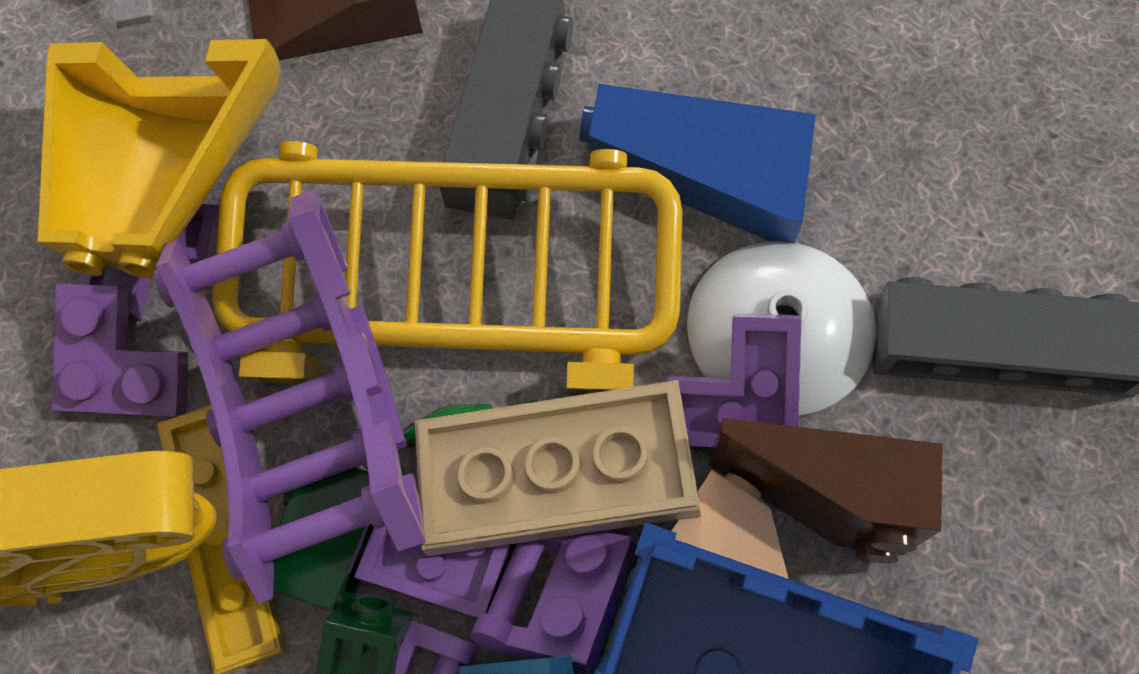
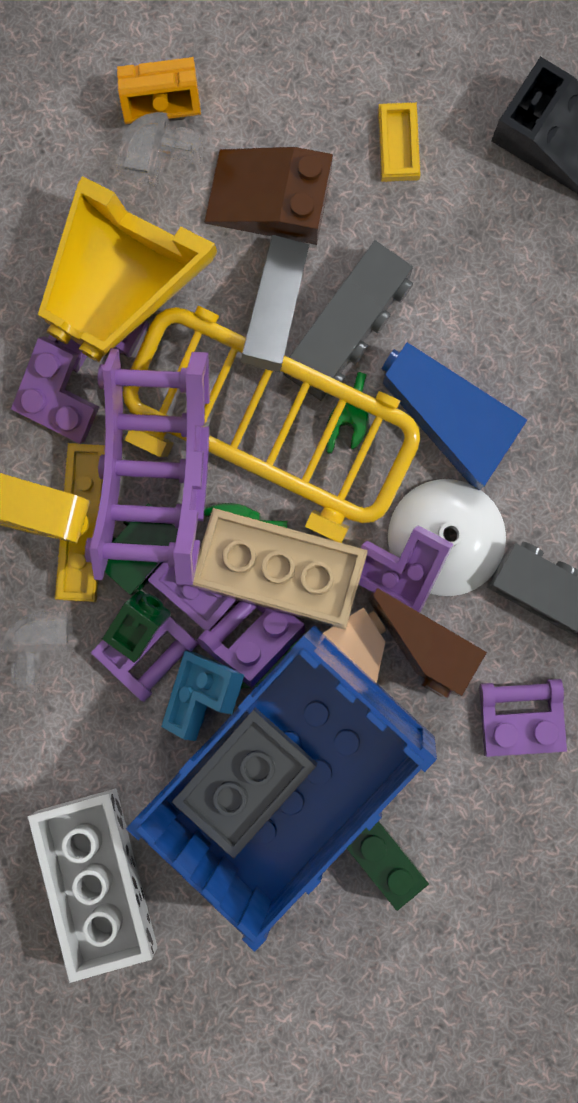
camera: 20 degrees right, 15 degrees up
(393, 111) = (275, 304): none -> tile
(568, 217) = (352, 417): none -> green hand
(1046, 563) = (523, 731): none -> medium lavender plate

